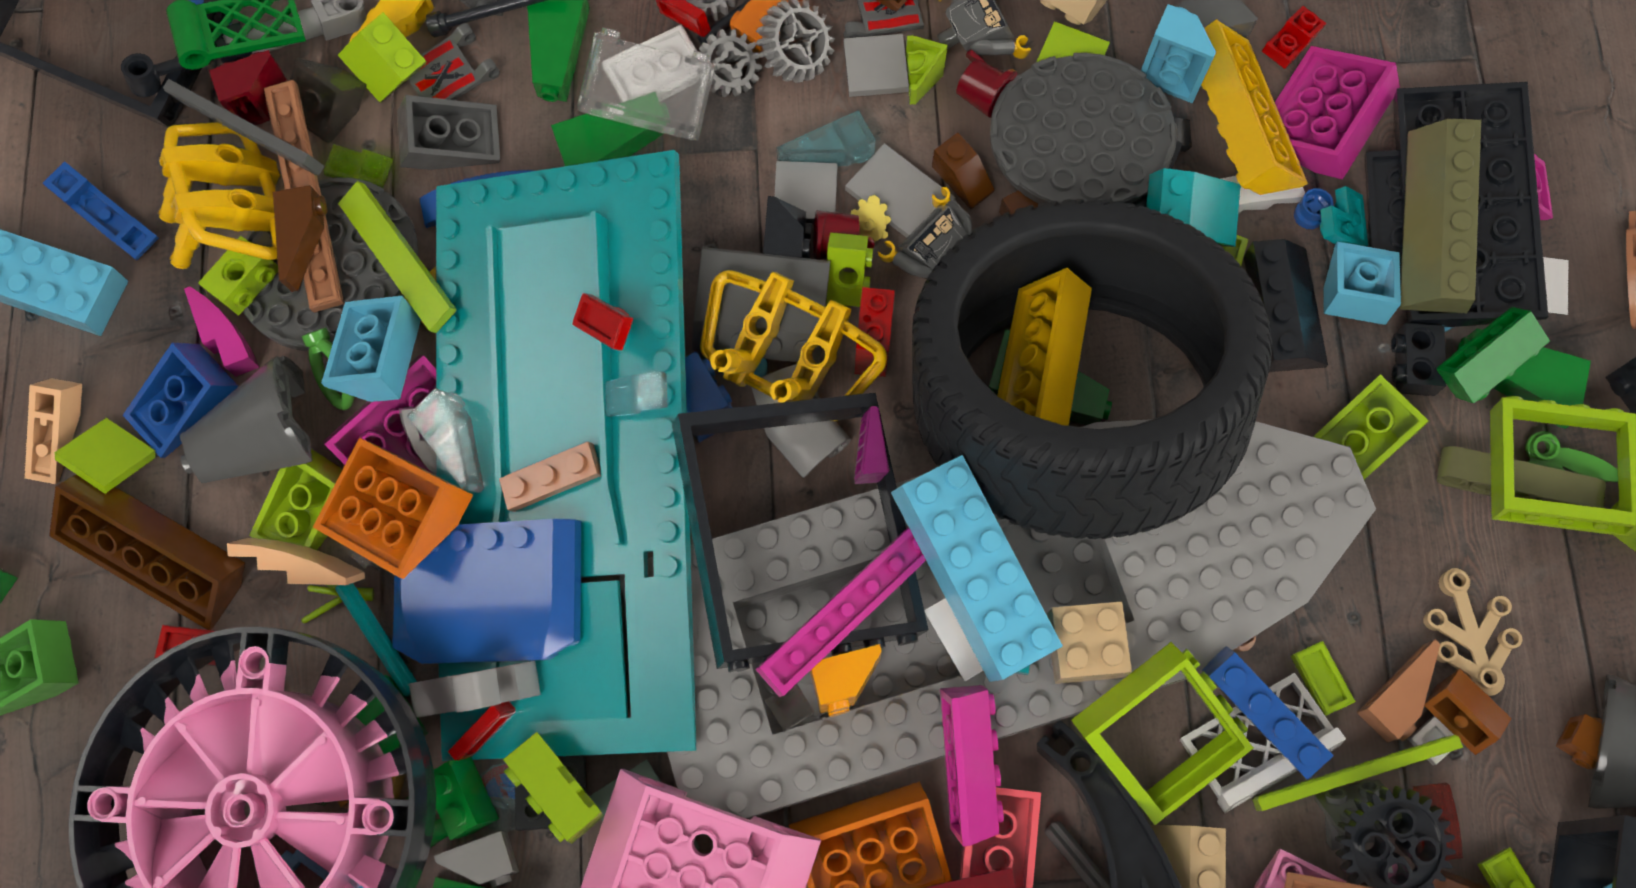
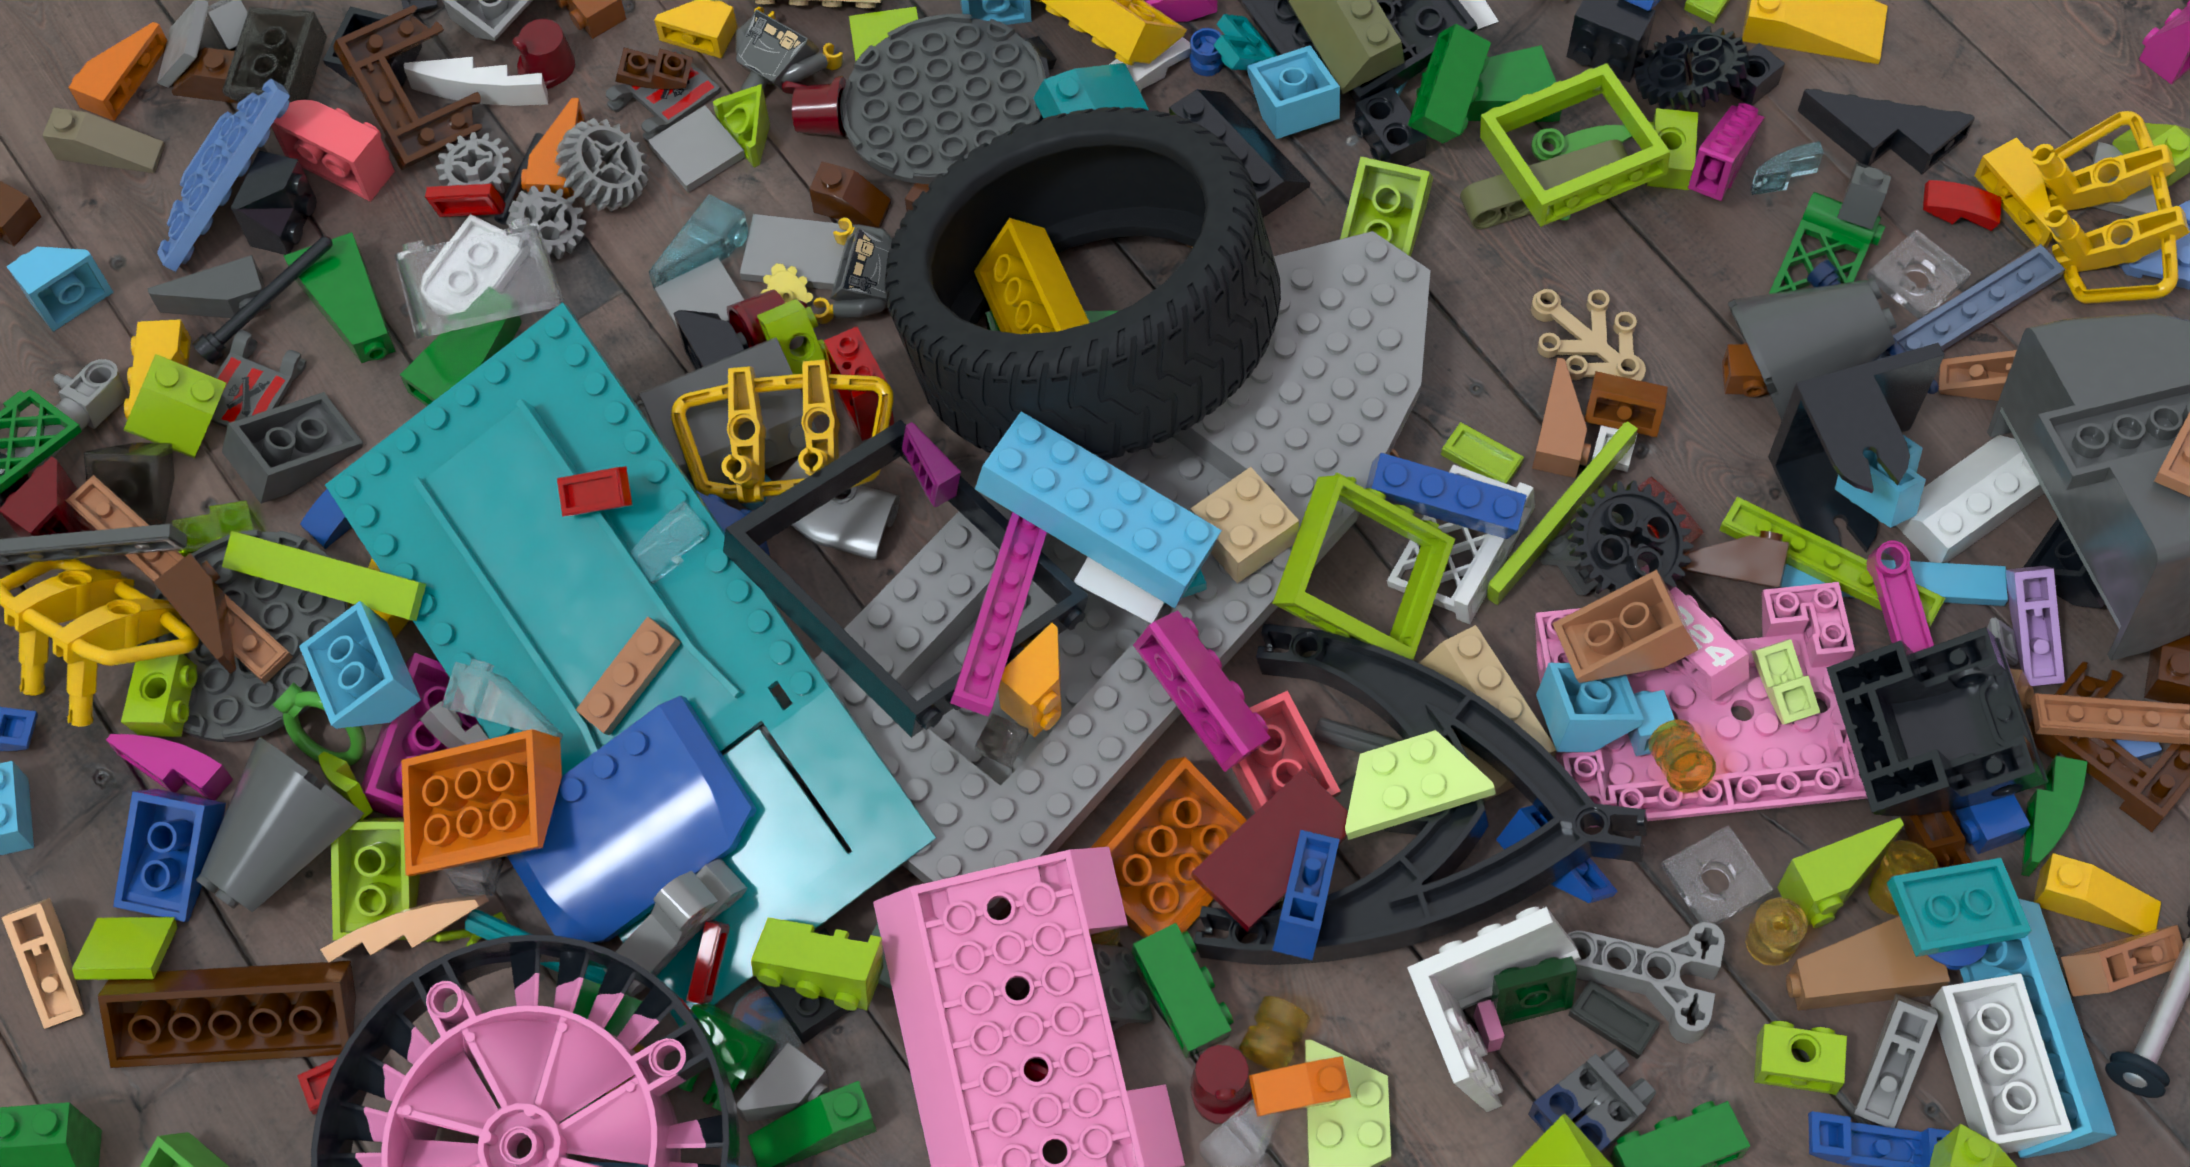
camera: 30 degrees left, 10 degrees down
(319, 424) = (344, 782): none -> lime slope

